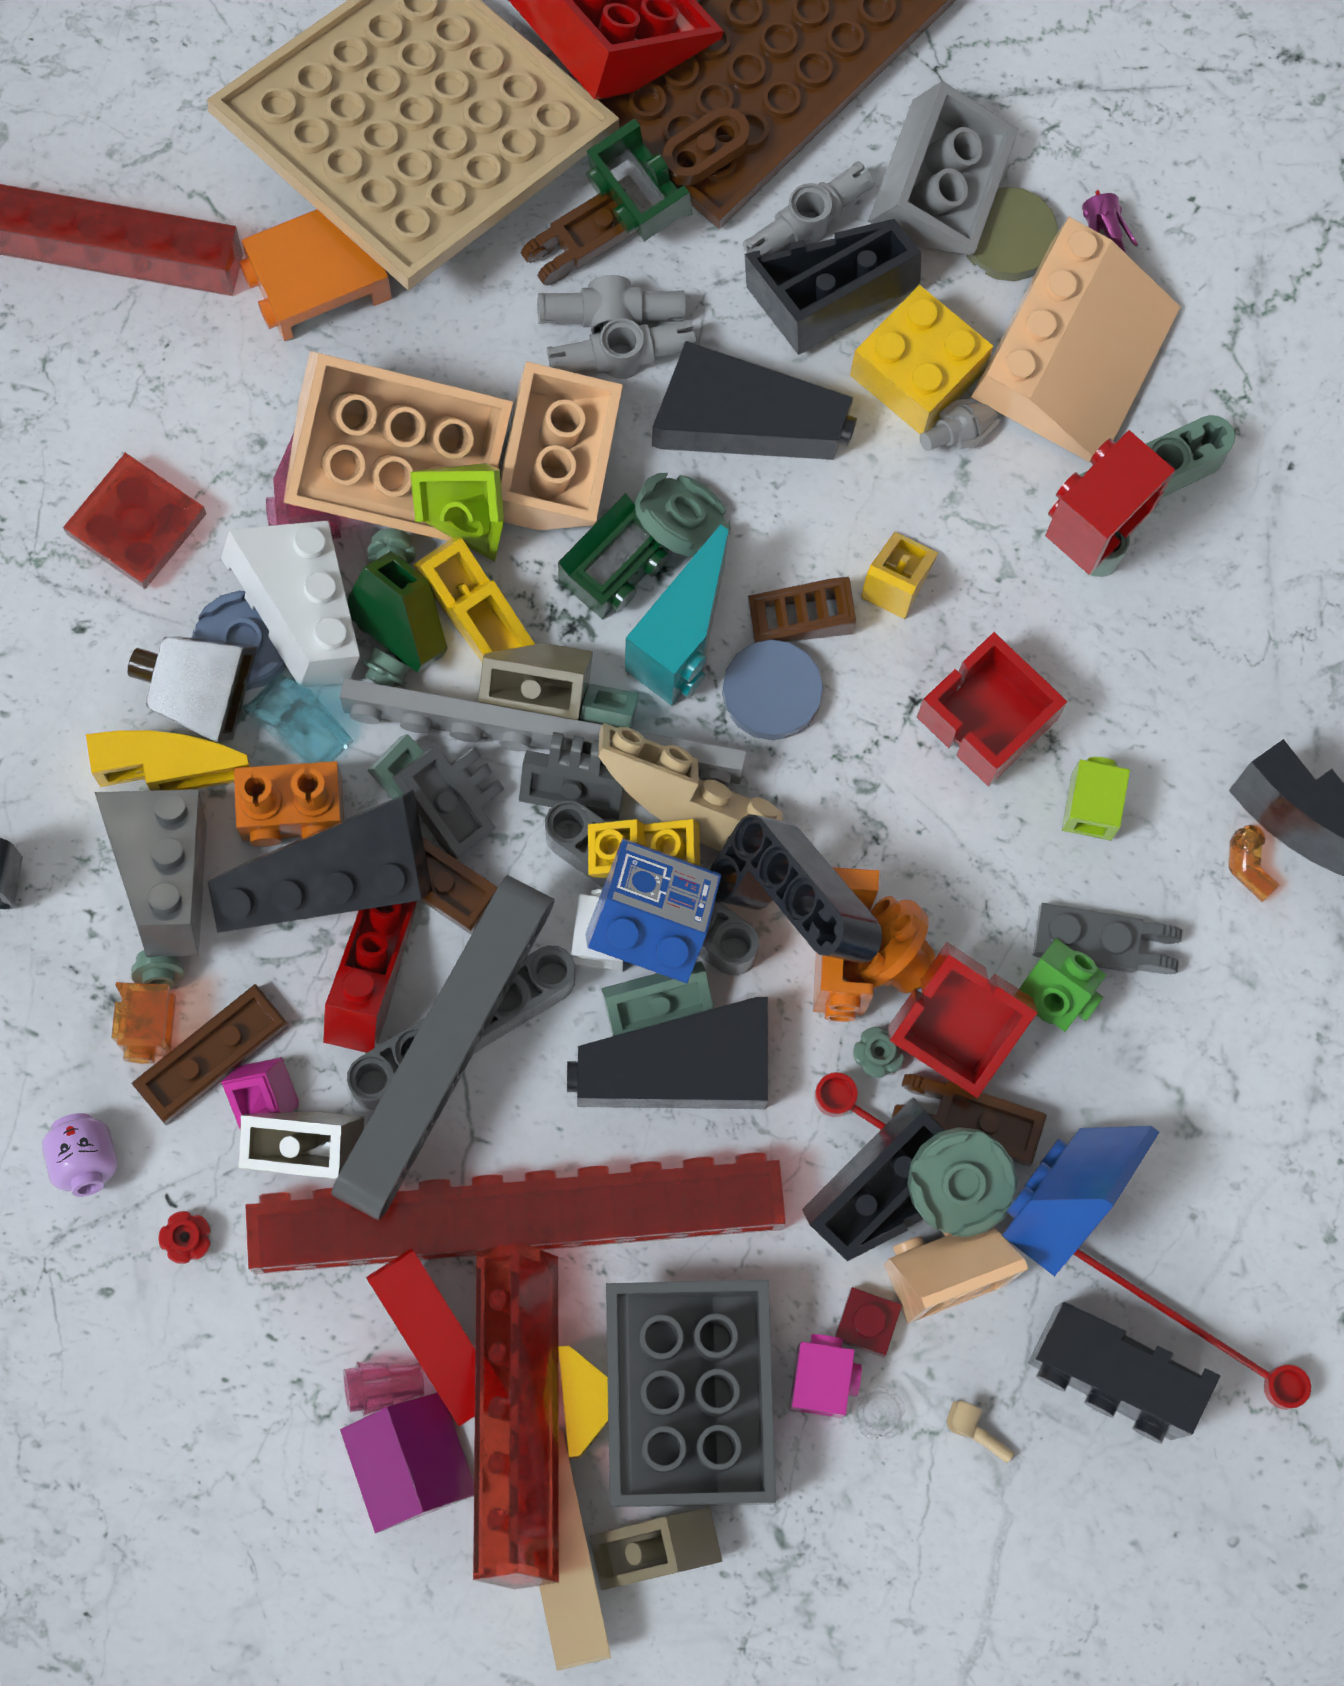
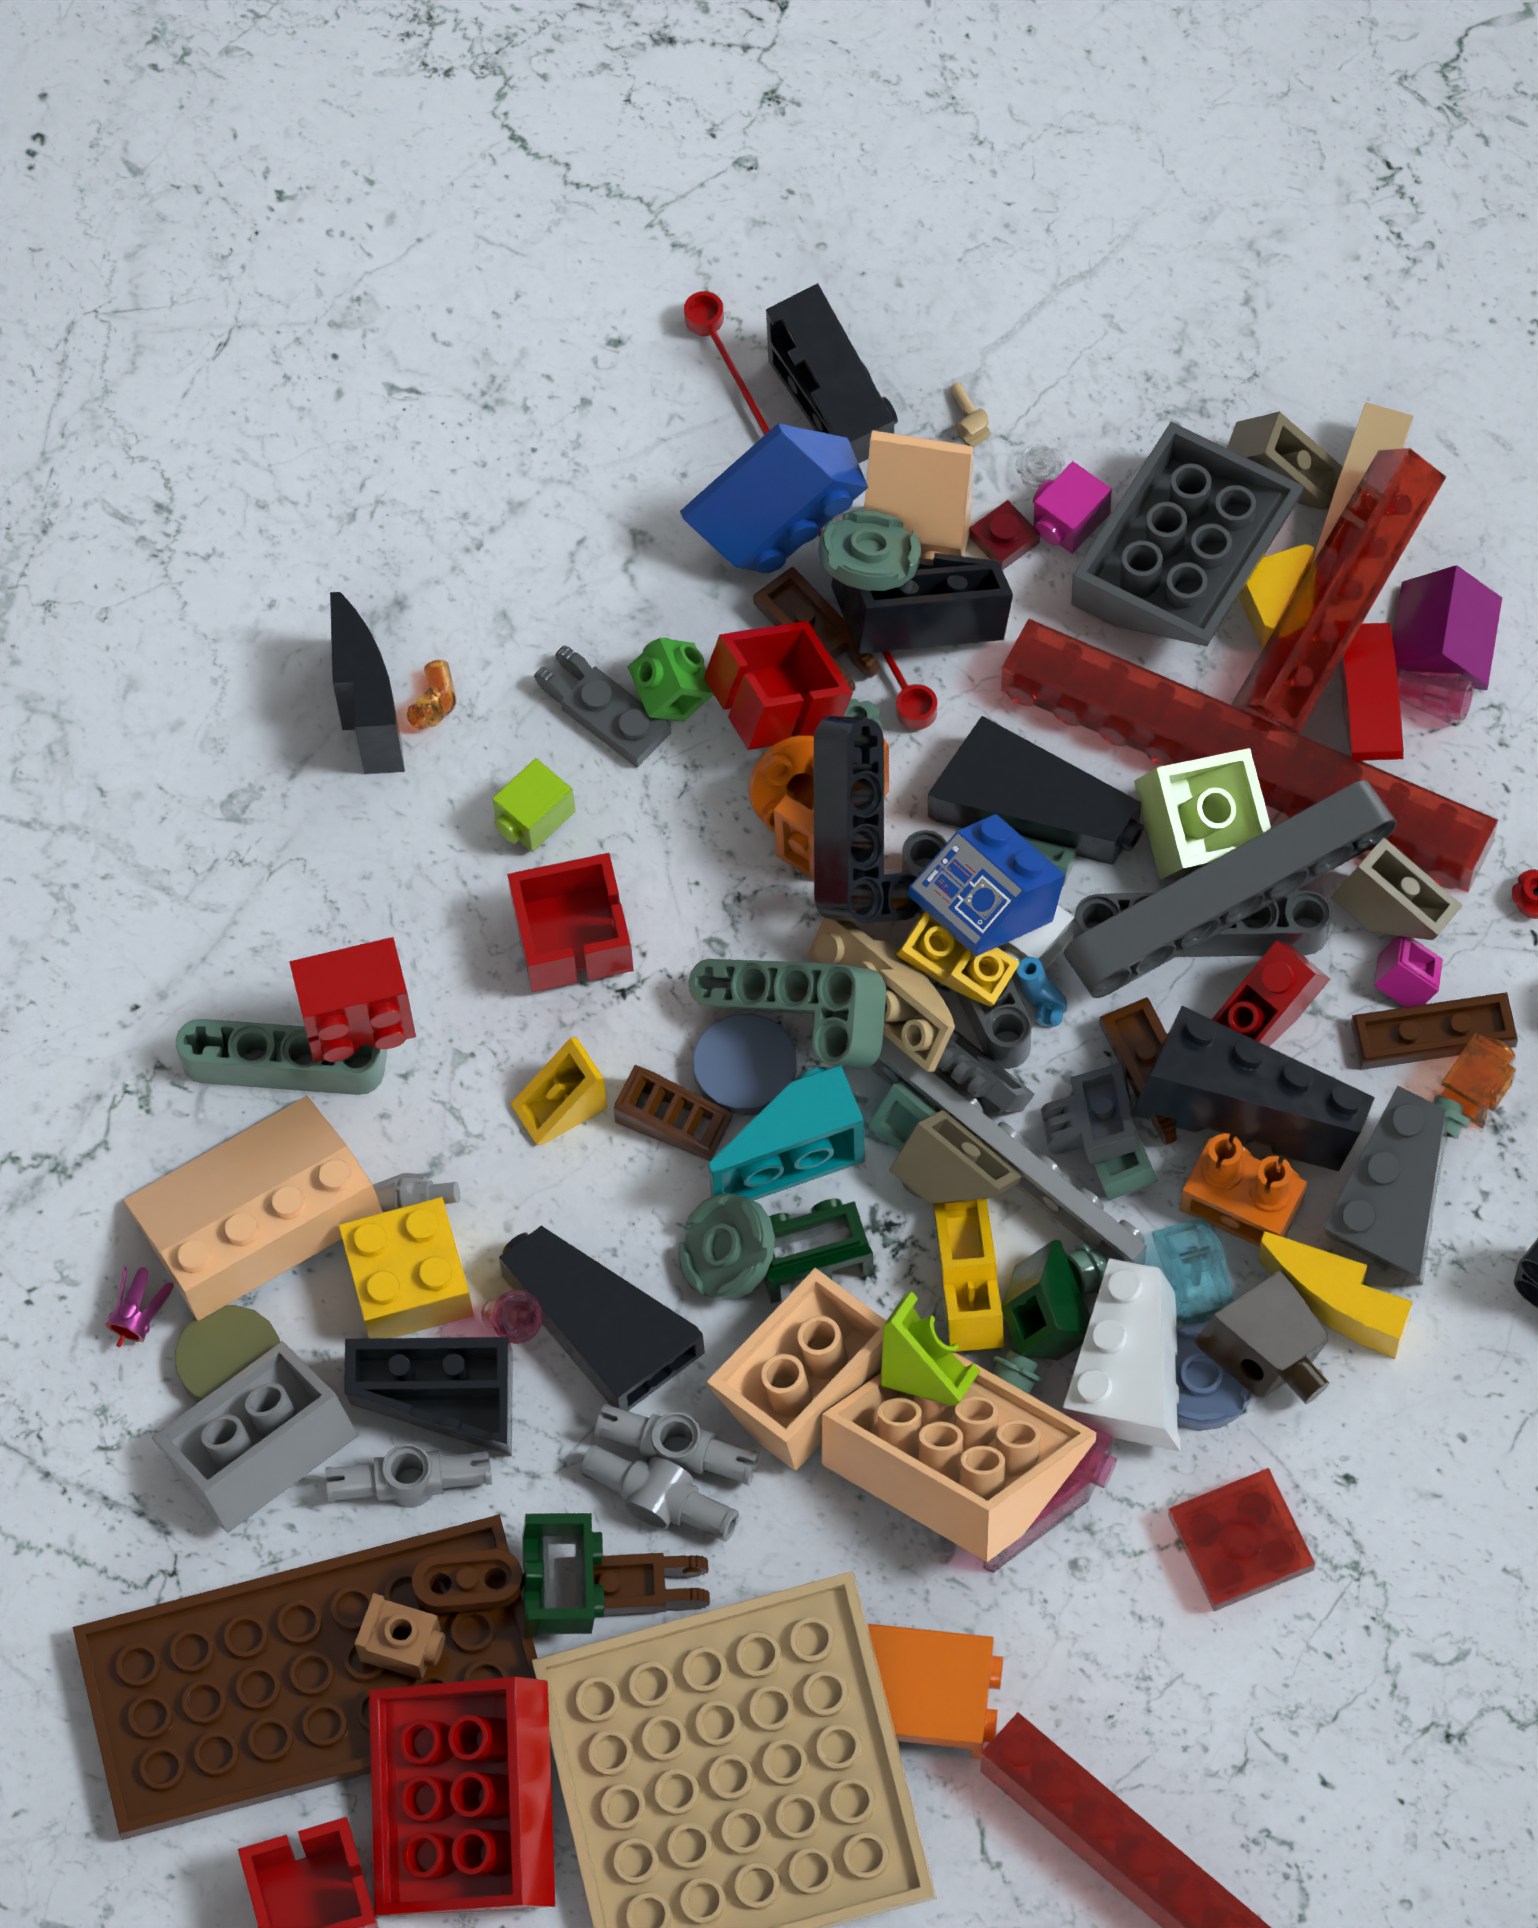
camera: 140 degrees left, 10 degrees down
(514, 1121) = (1201, 810): none -> yellowish green slope
(562, 889) = (1041, 992): none -> dark azure arm
(727, 77) = (405, 1656): none -> medium nougat brick
(751, 737) = (836, 1010): none -> sand green beam
(810, 360) = (513, 1315): none -> clear pink cone

